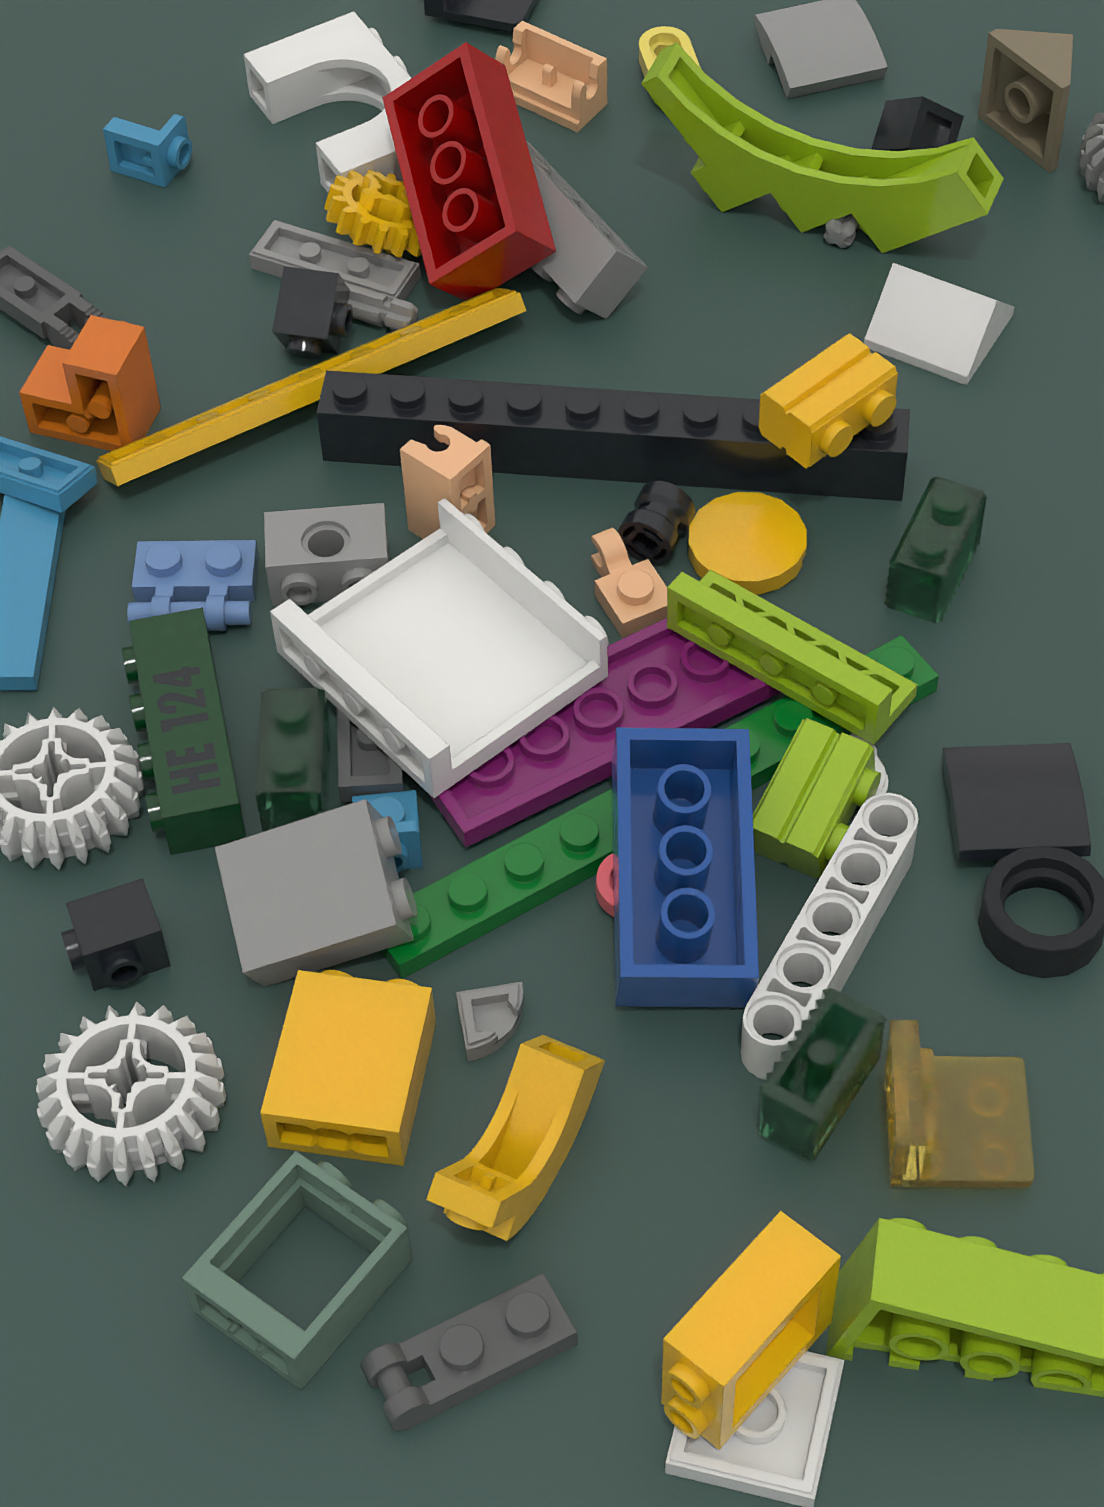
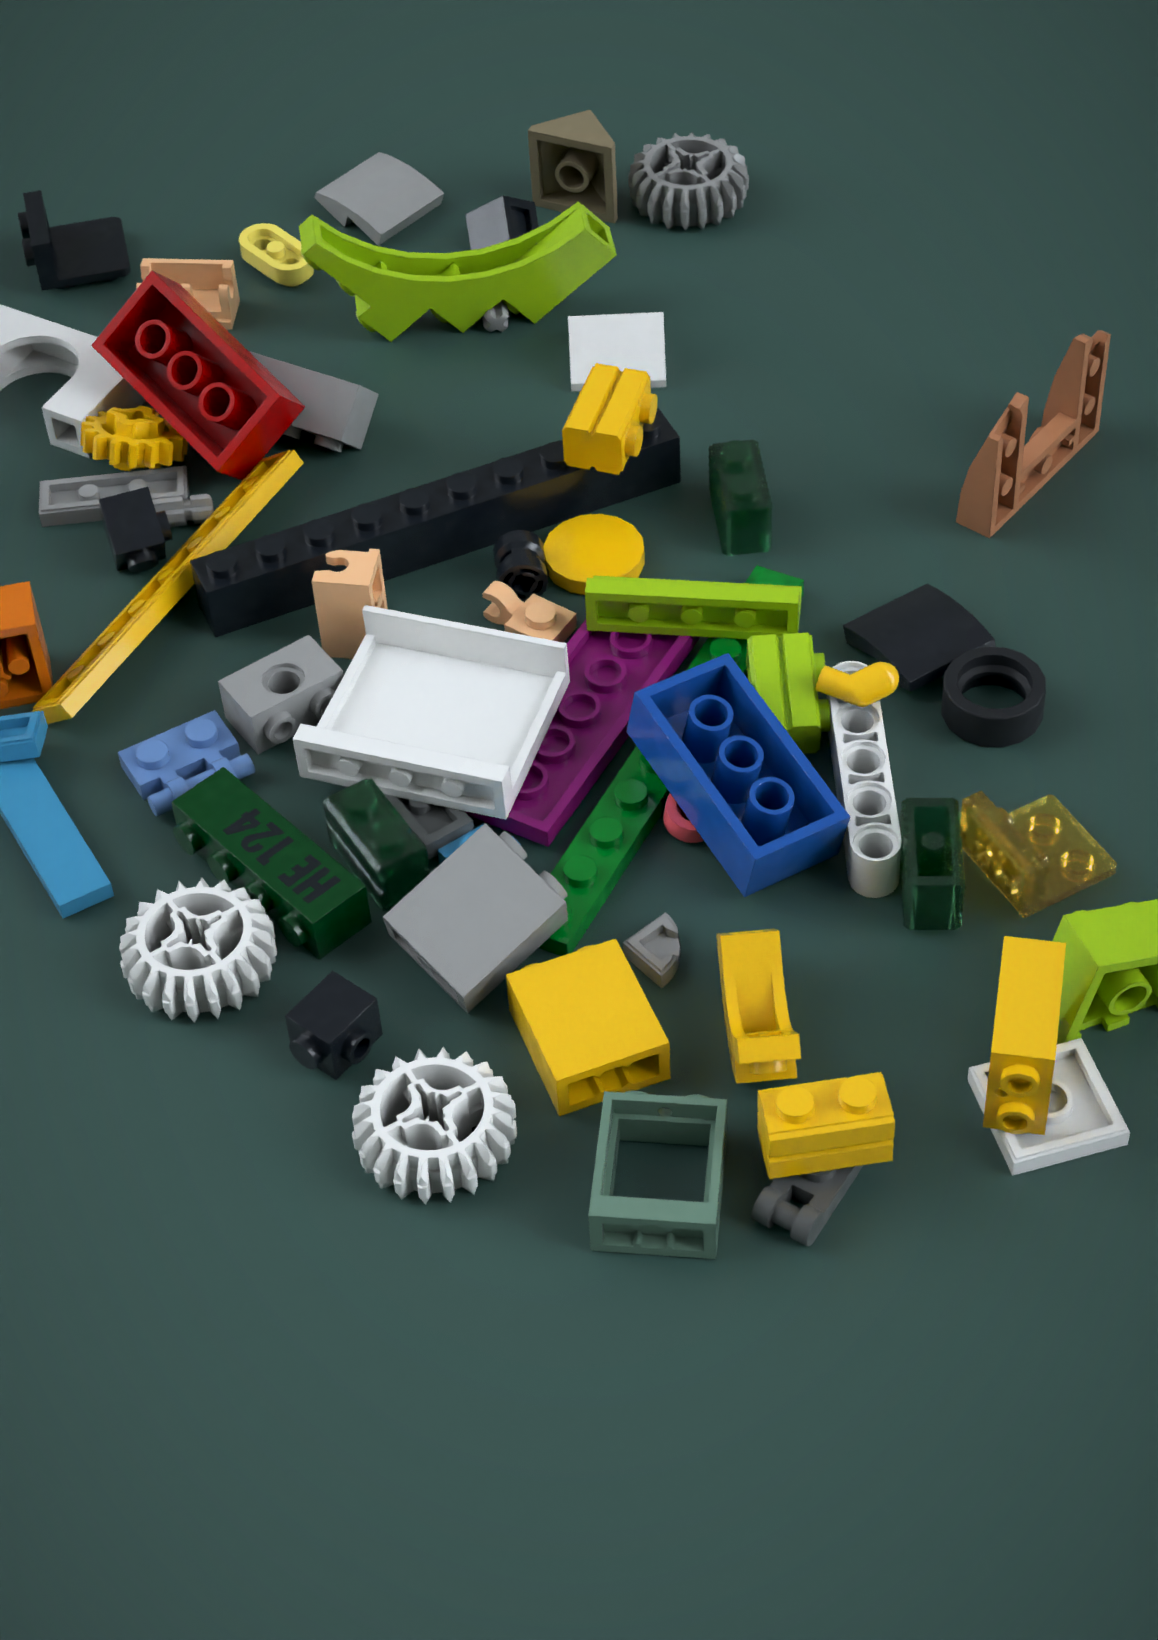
camera: 30 degrees left, 5 degrees down
(475, 1314) = (825, 1125): none -> yellow brick
(883, 833) = (860, 687): none -> yellow arm

